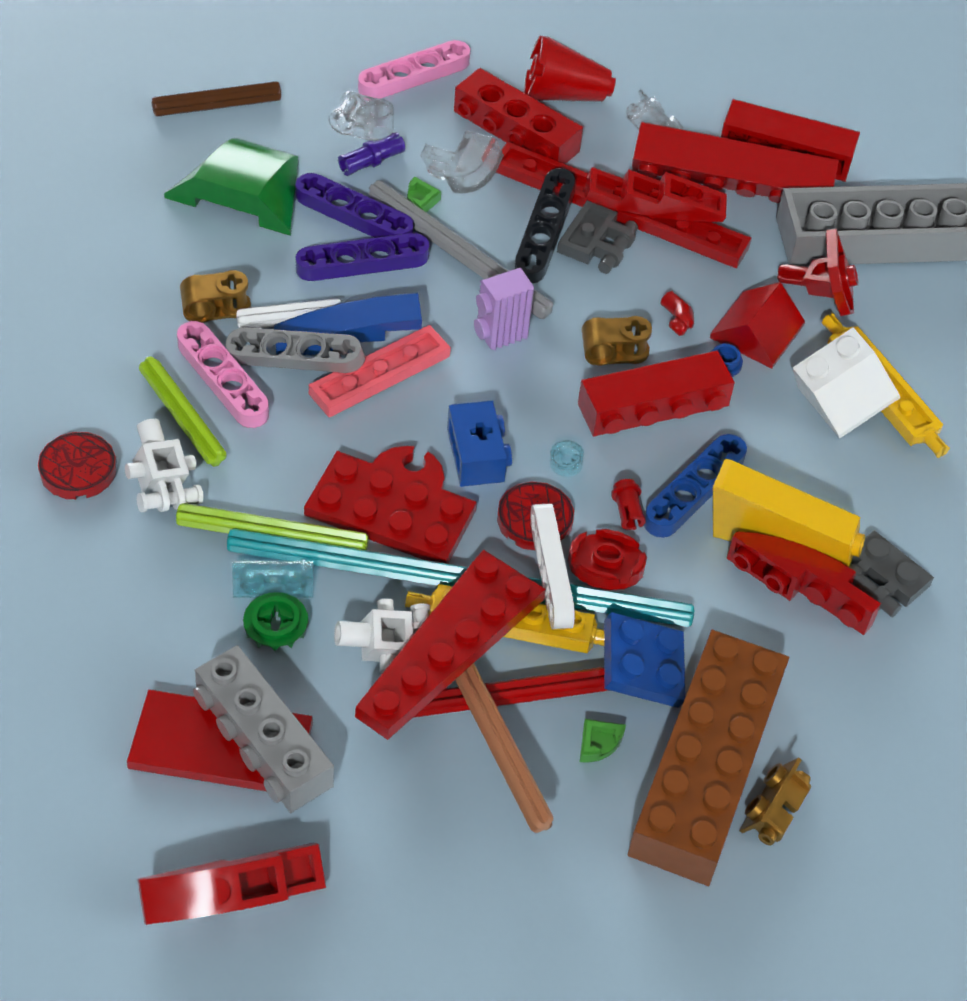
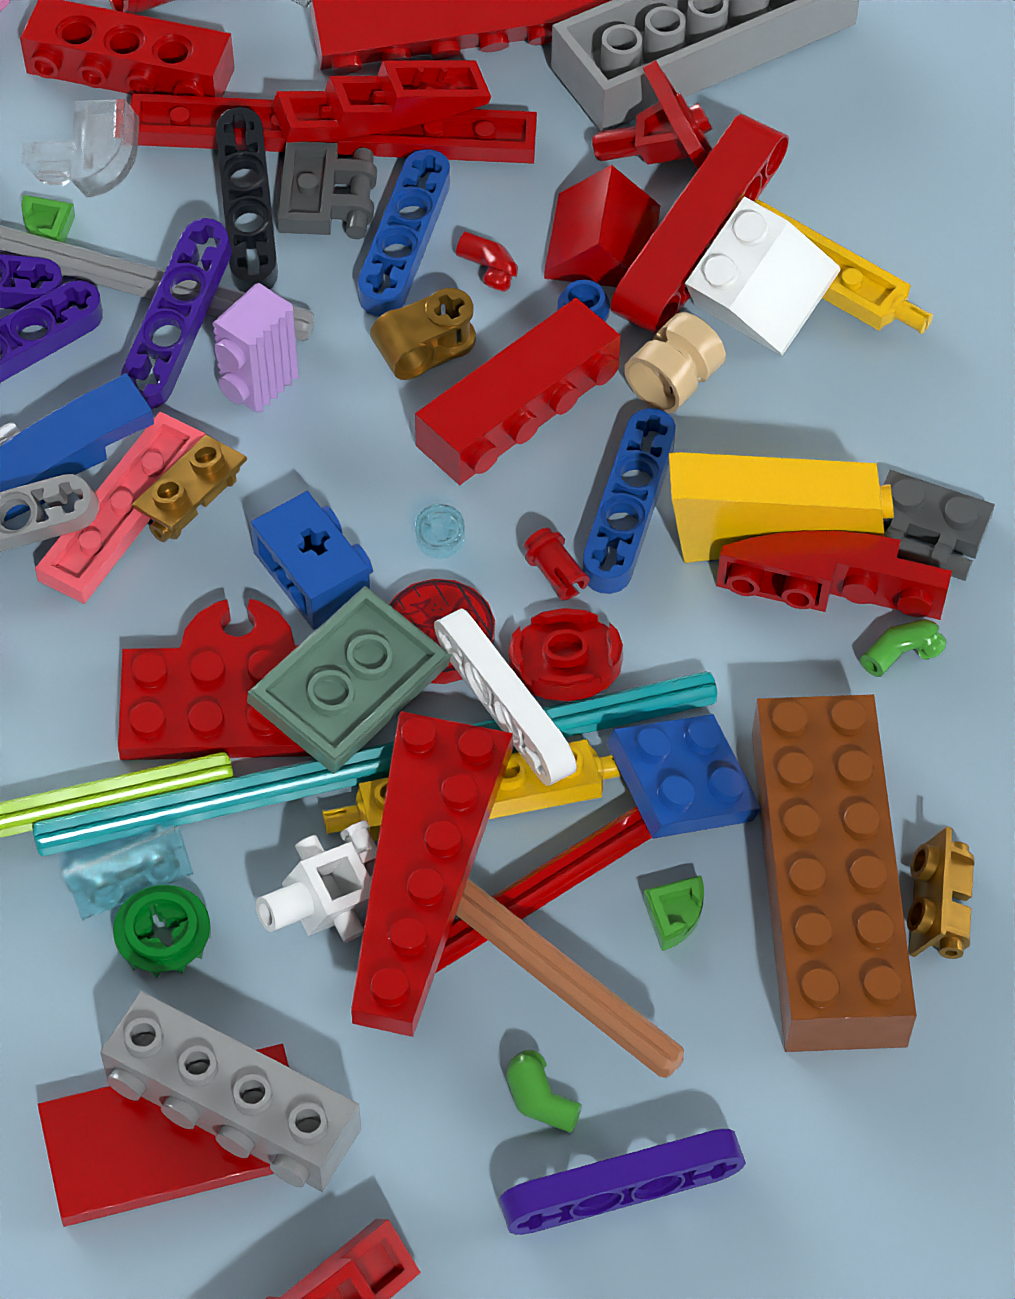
camera: 20 degrees left, 5 degrees up
(435, 369) = (190, 482): none -> pearl gold hinge
(451, 813) = (533, 1093): none -> bright green arm
(462, 519) = (348, 679): none -> sand green tile
(464, 269) = (182, 314): none -> dark purple beam
(479, 887) = (621, 1181): none -> dark purple beam
(629, 275) = (404, 231): none -> blue beam
(764, 414) = (674, 362): none -> tan wheel
(827, 635) = (898, 639): none -> bright green arm
(863, 309) = (735, 168): none -> red beam

